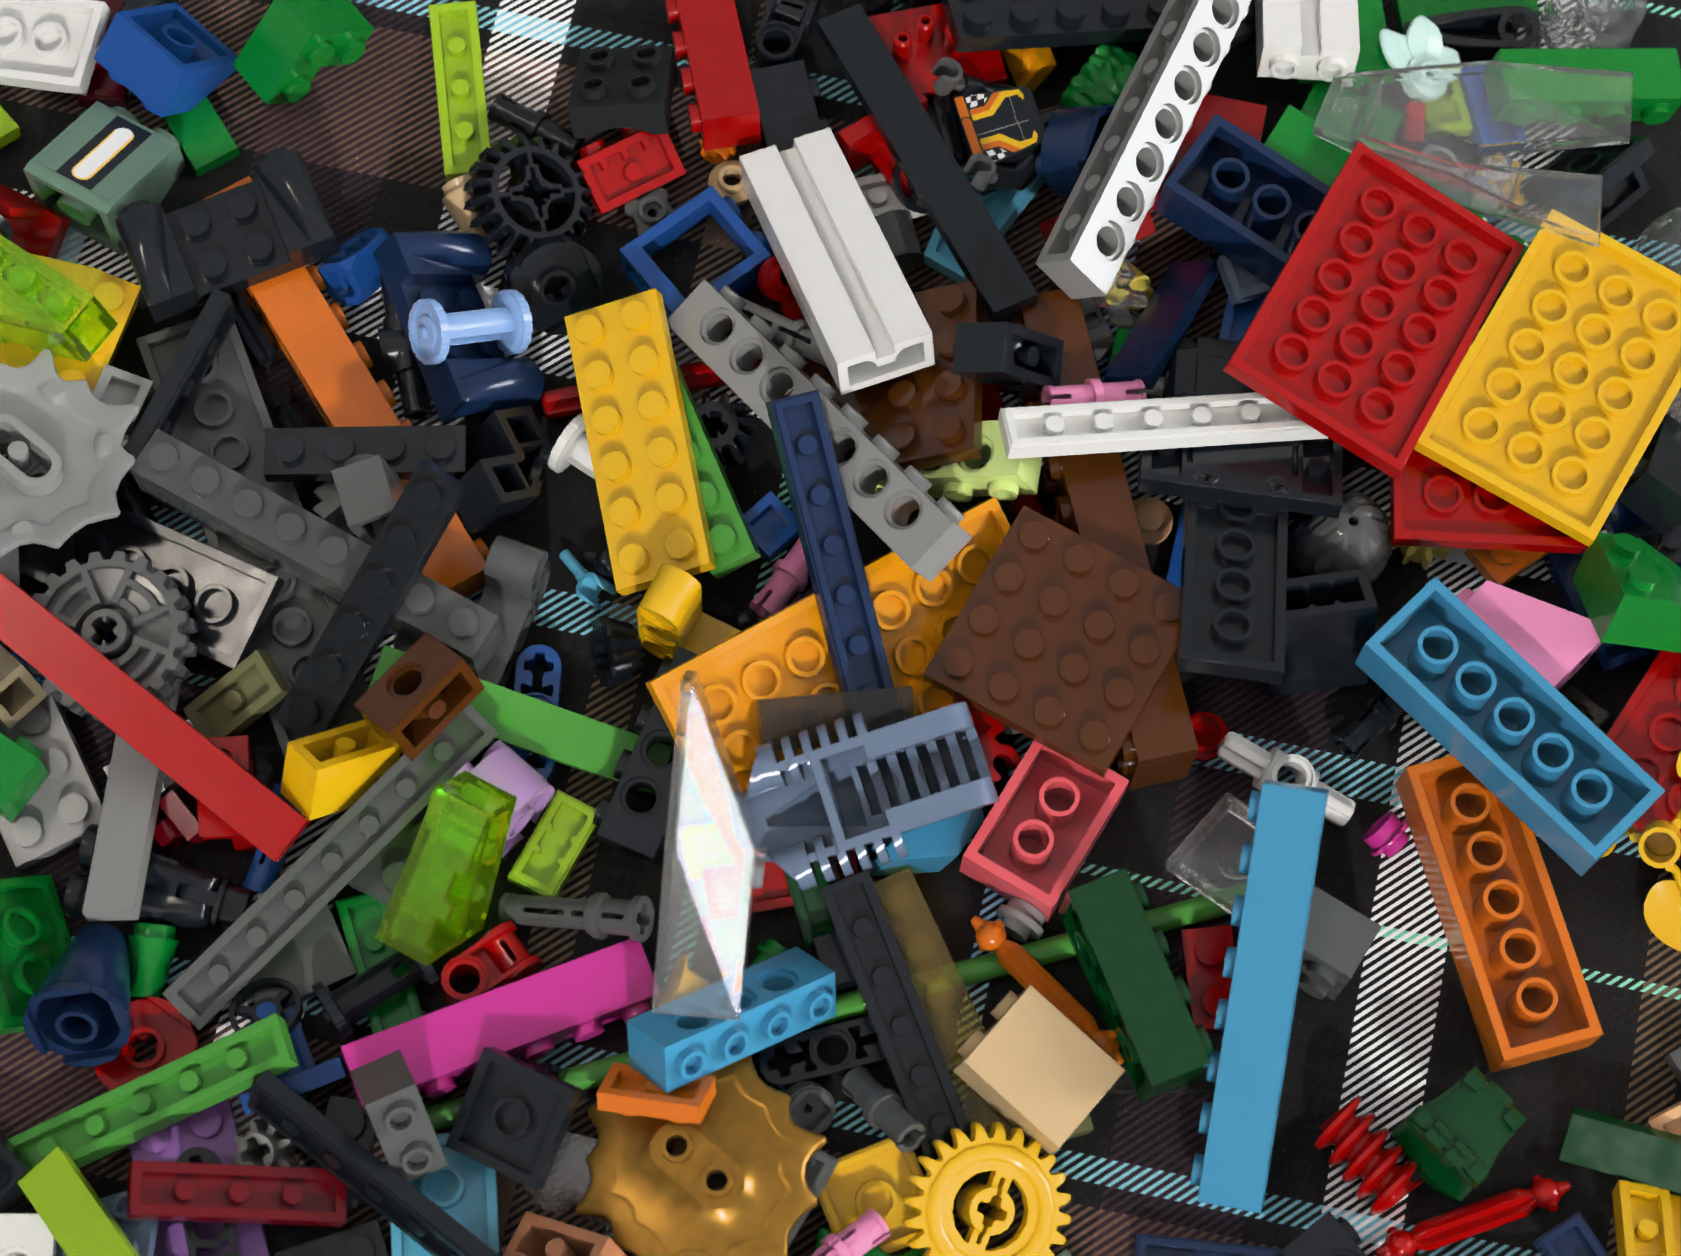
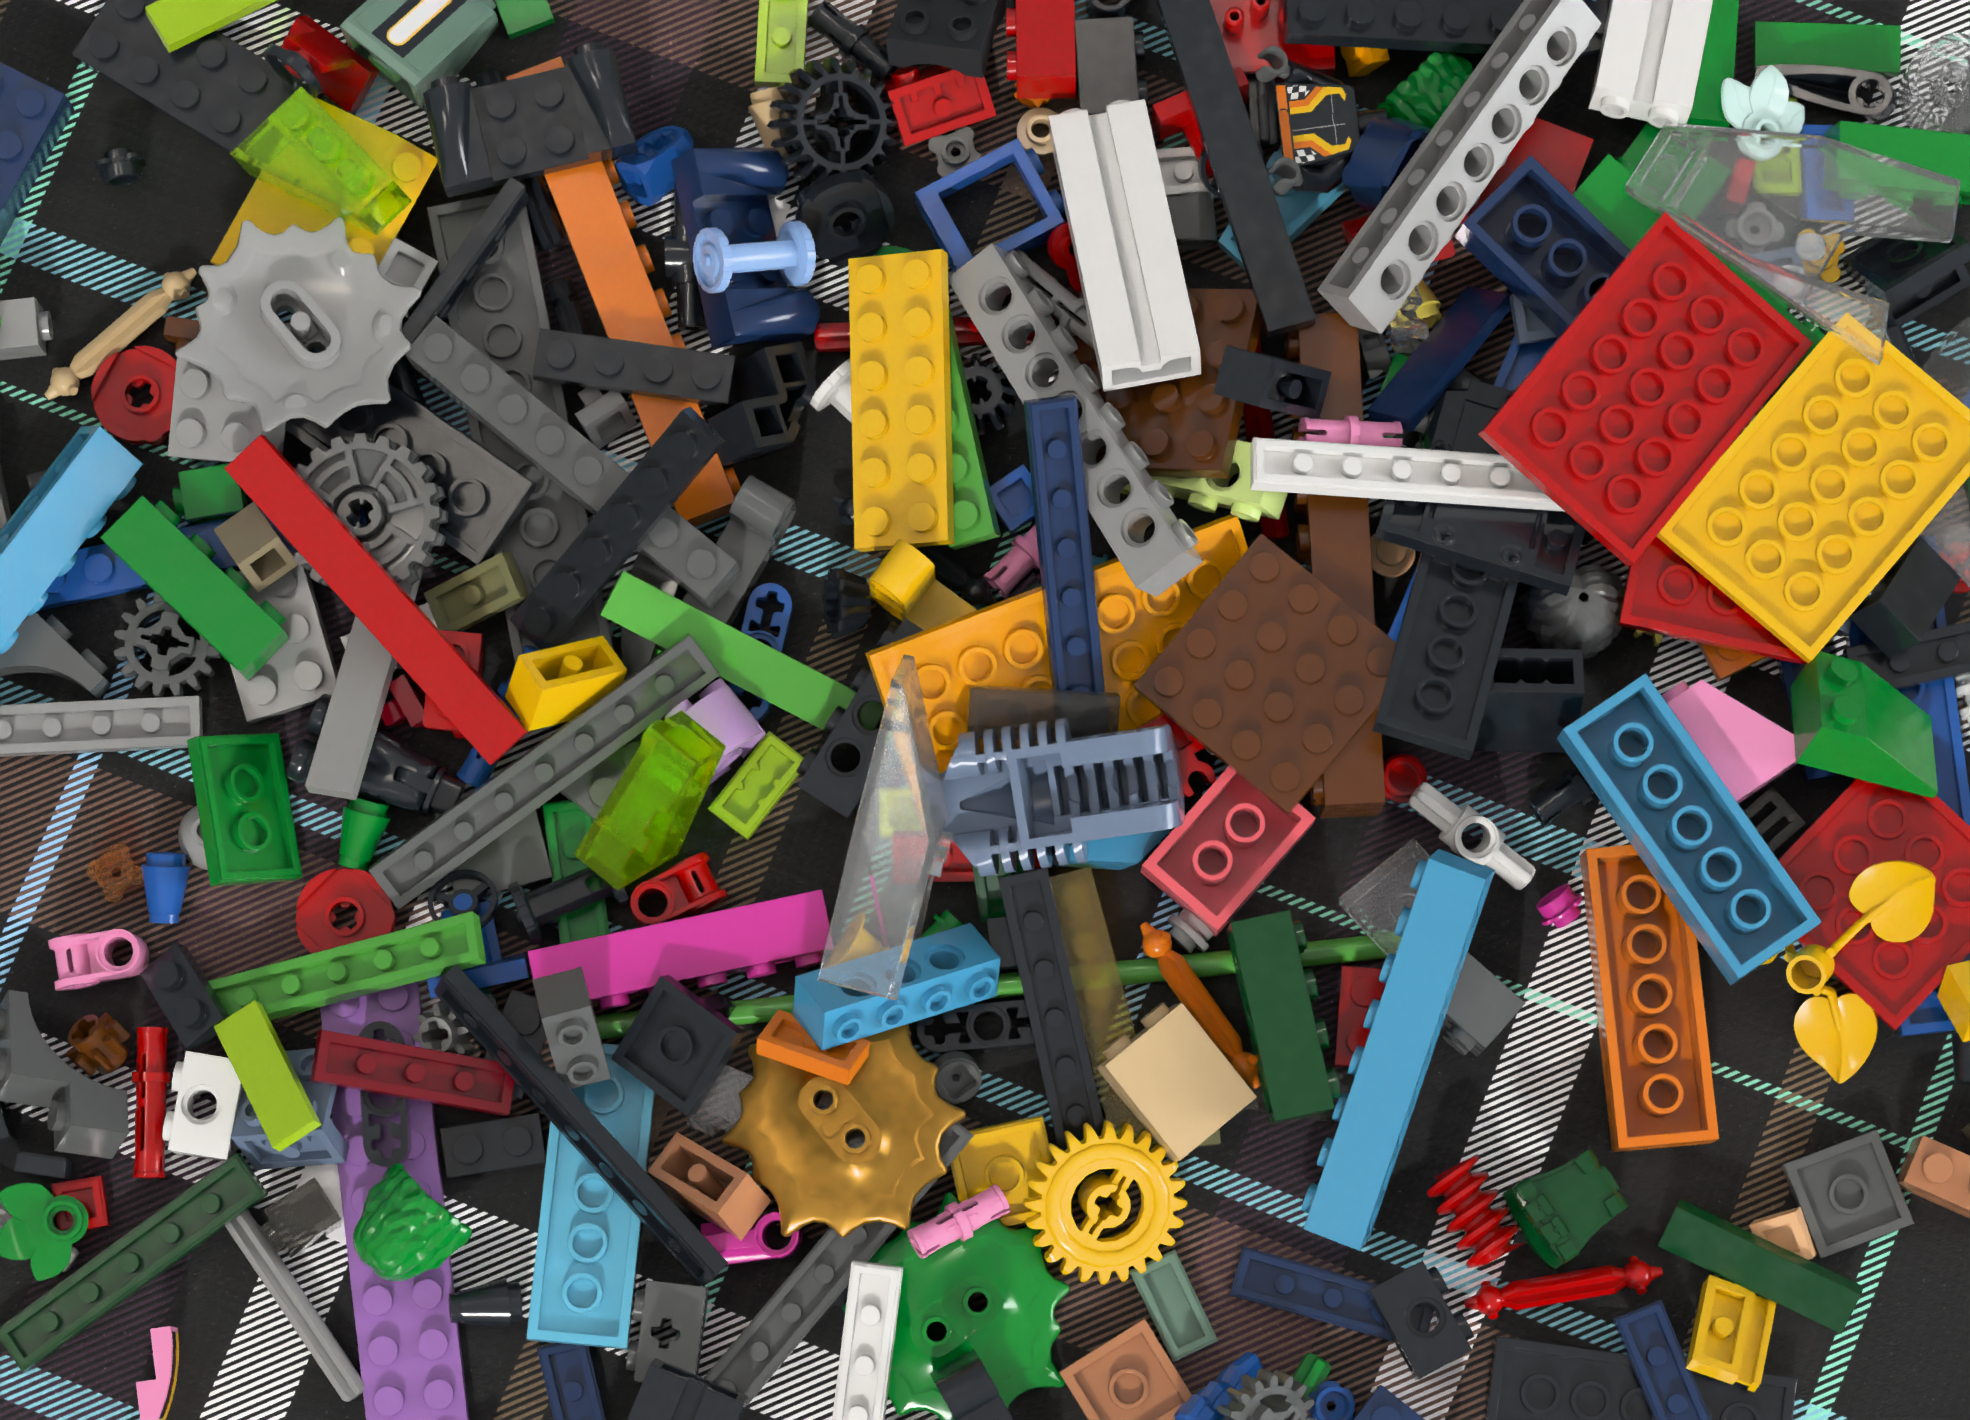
camera: 15 degrees right, 10 degrees up
(84, 1000) = (297, 865): dark blue cone -> none
(367, 493) = (631, 422): dark grey brick -> none
(419, 696) = (649, 630): reddish brown brick -> none
(588, 583) = (830, 529): medium azure hand -> none
(594, 915) = (783, 862): dark grey pin -> none
(883, 1109) = (1025, 1092): dark grey pin -> none

